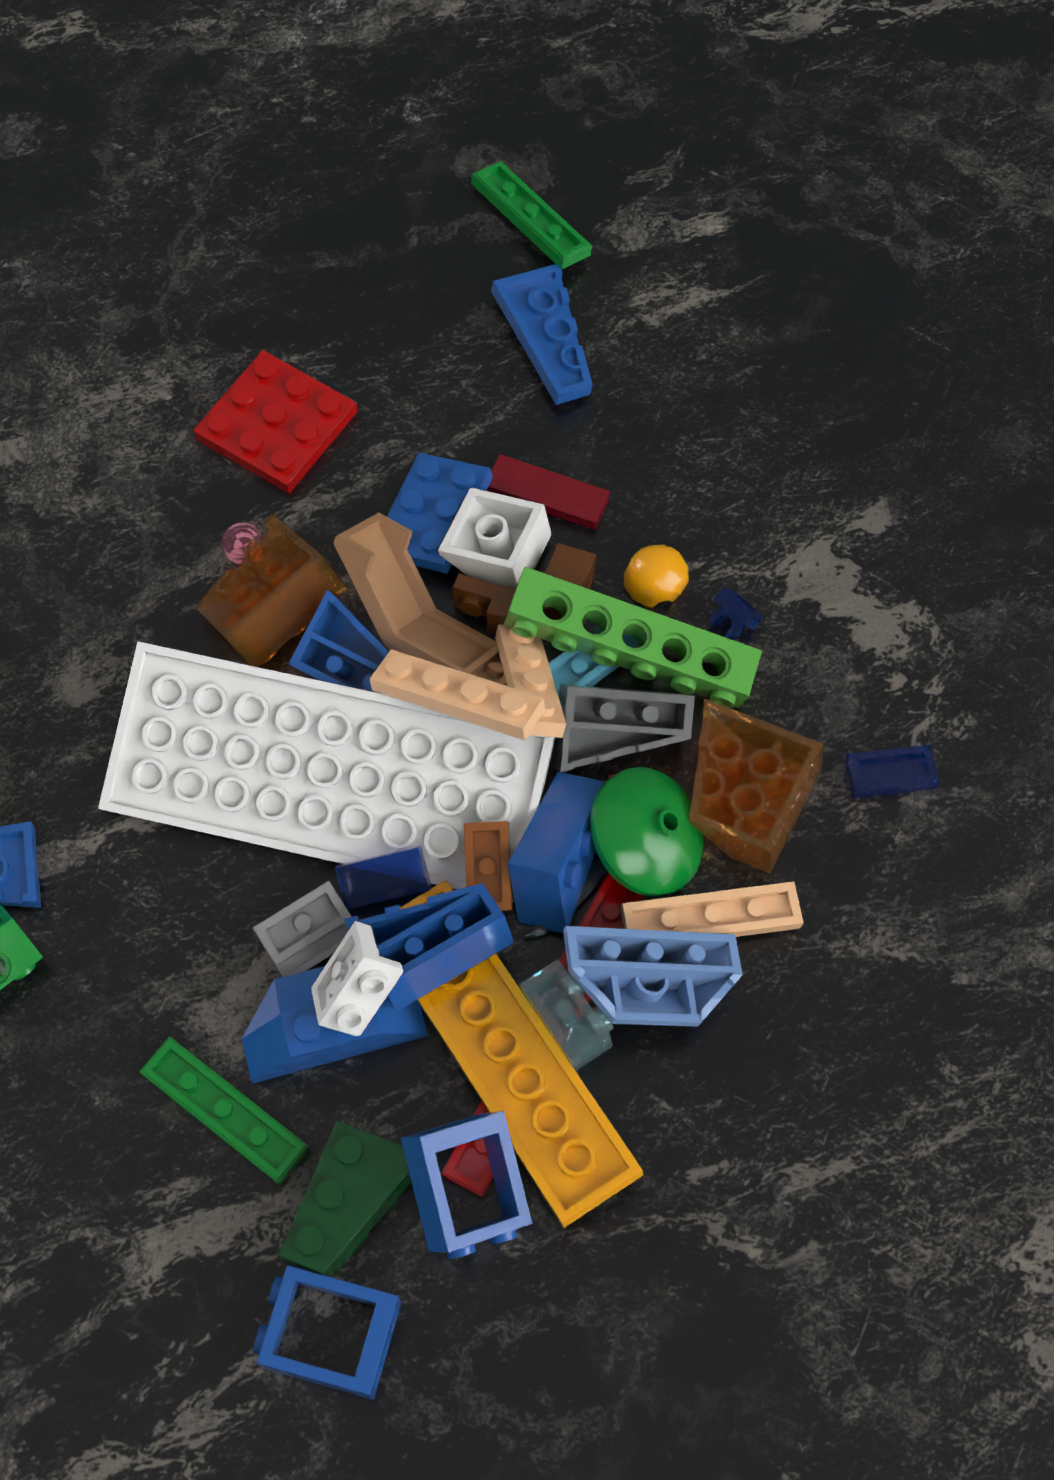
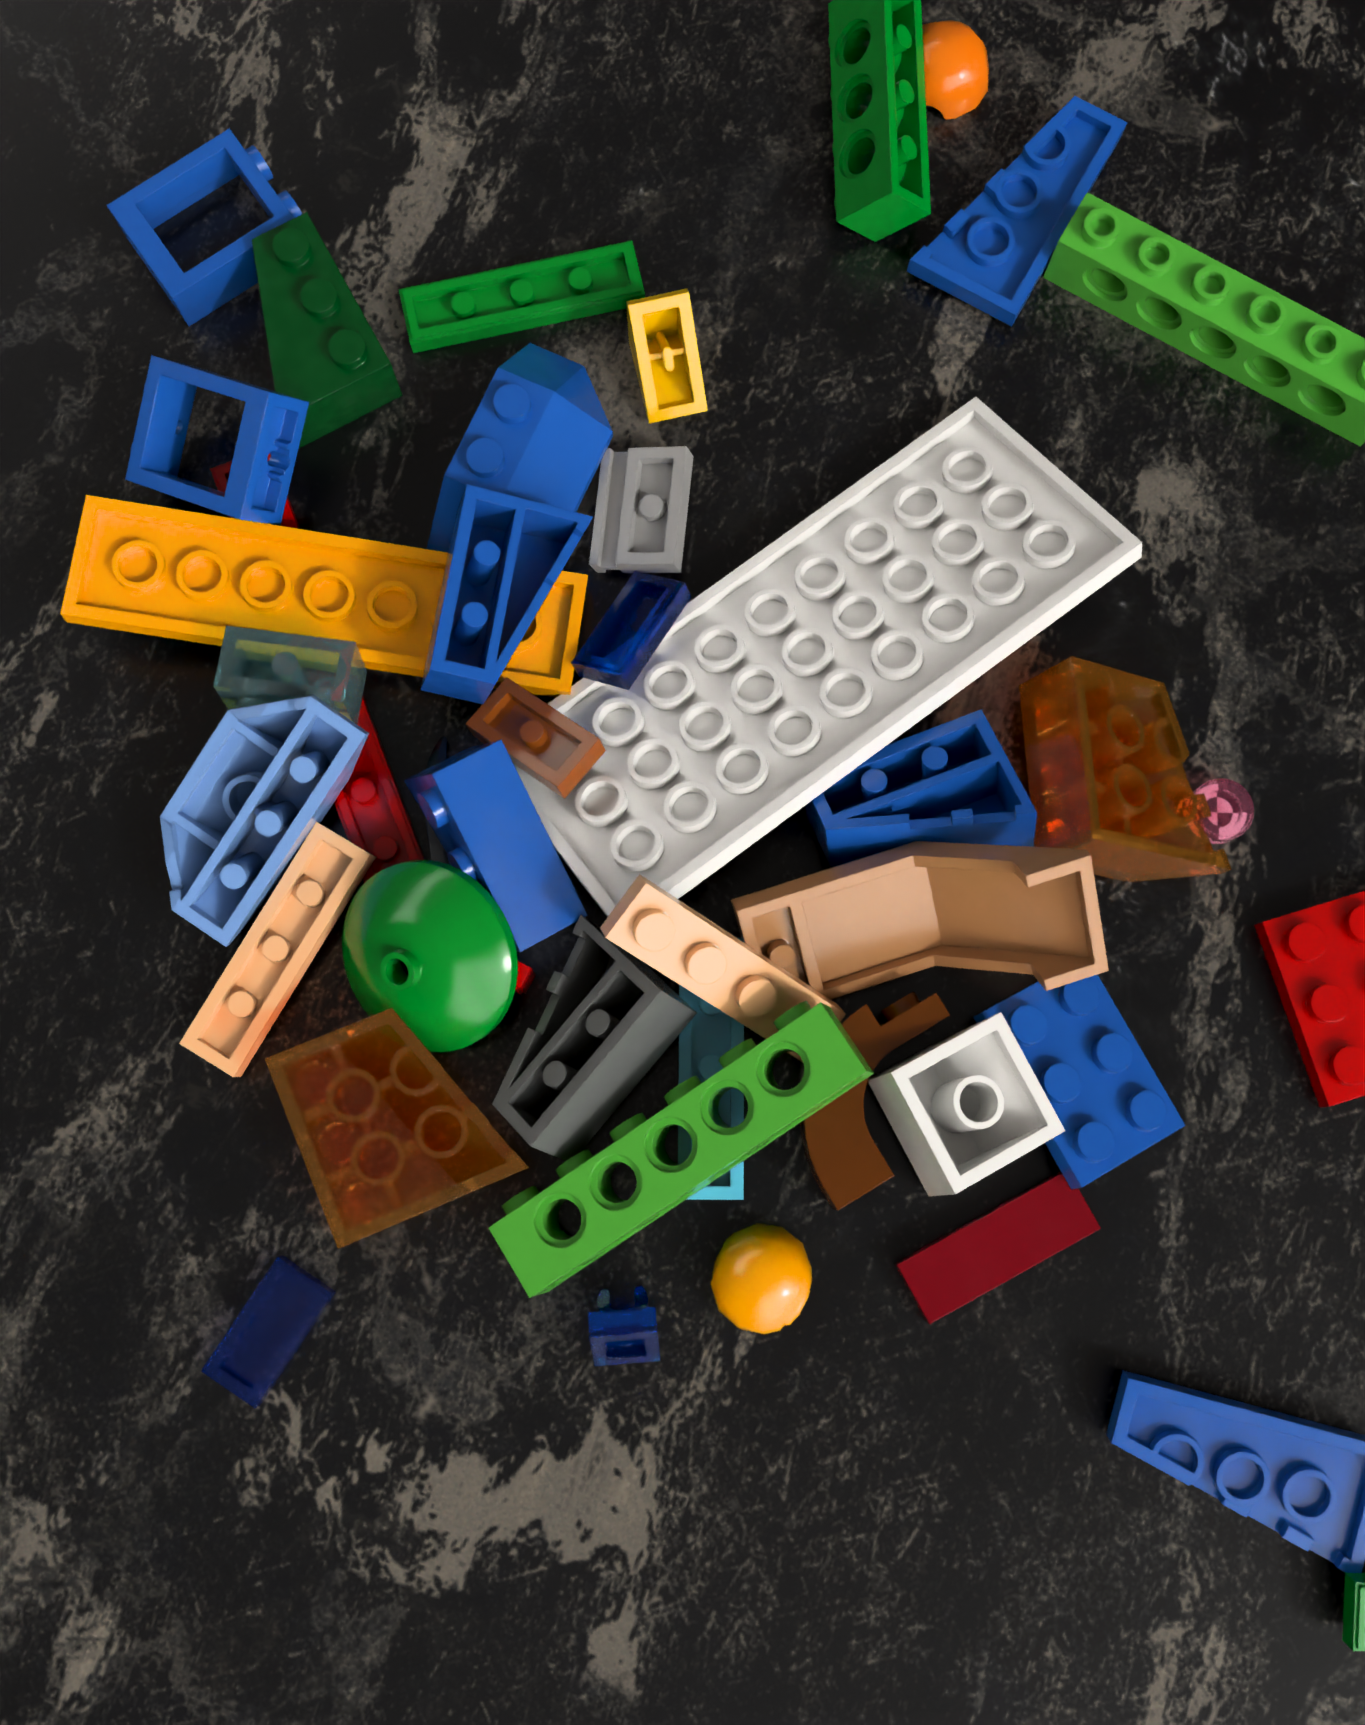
camera: 130 degrees right, 15 degrees up
(204, 988) = (666, 355): none -> yellow slope
(354, 982) = (506, 453): white bracket -> none
(458, 694) = (749, 840): light nougat plate -> none

